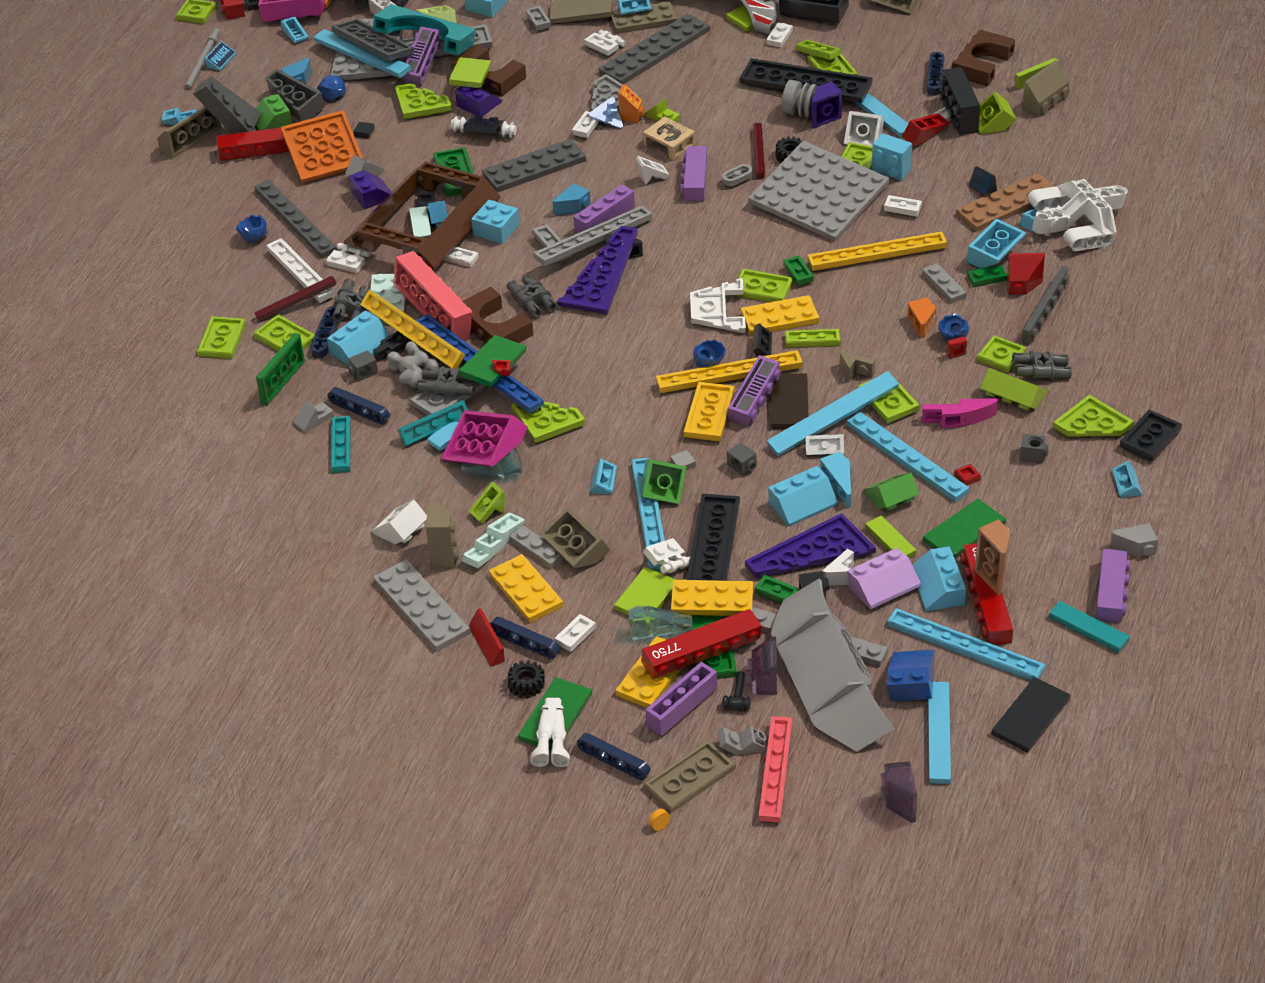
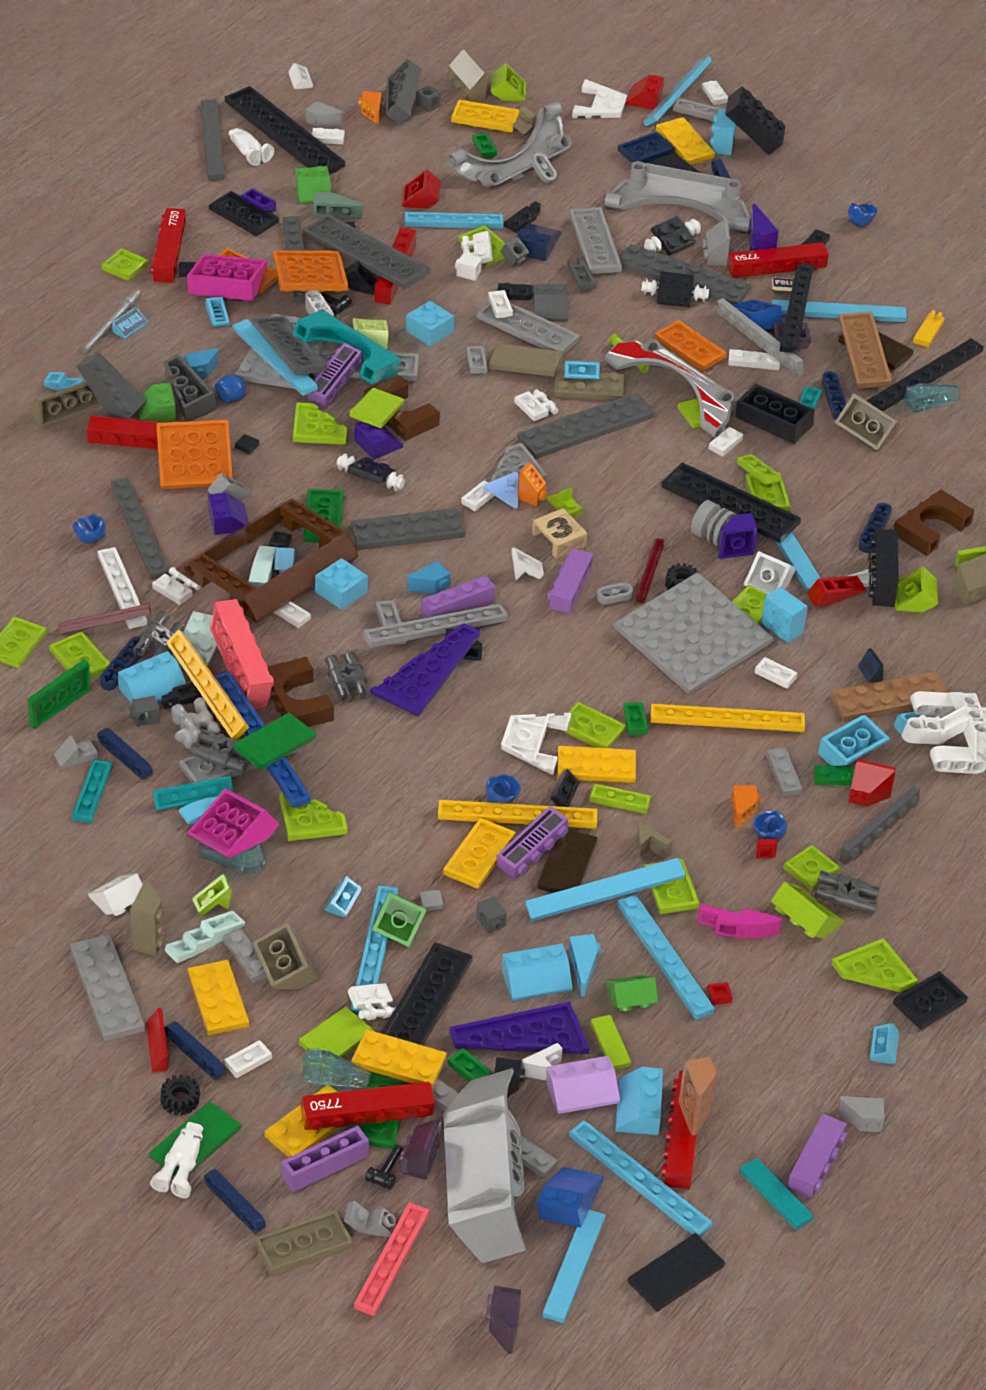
camera: 10 degrees right, 0 degrees up
(501, 367) = (279, 751): red tile -> none
(659, 819) = (254, 1280): light orange tile -> none
(824, 444) = (583, 921): white plate -> none
(962, 527) = (702, 1043): green tile -> none
(1033, 448) = (799, 982): dark grey brick -> none

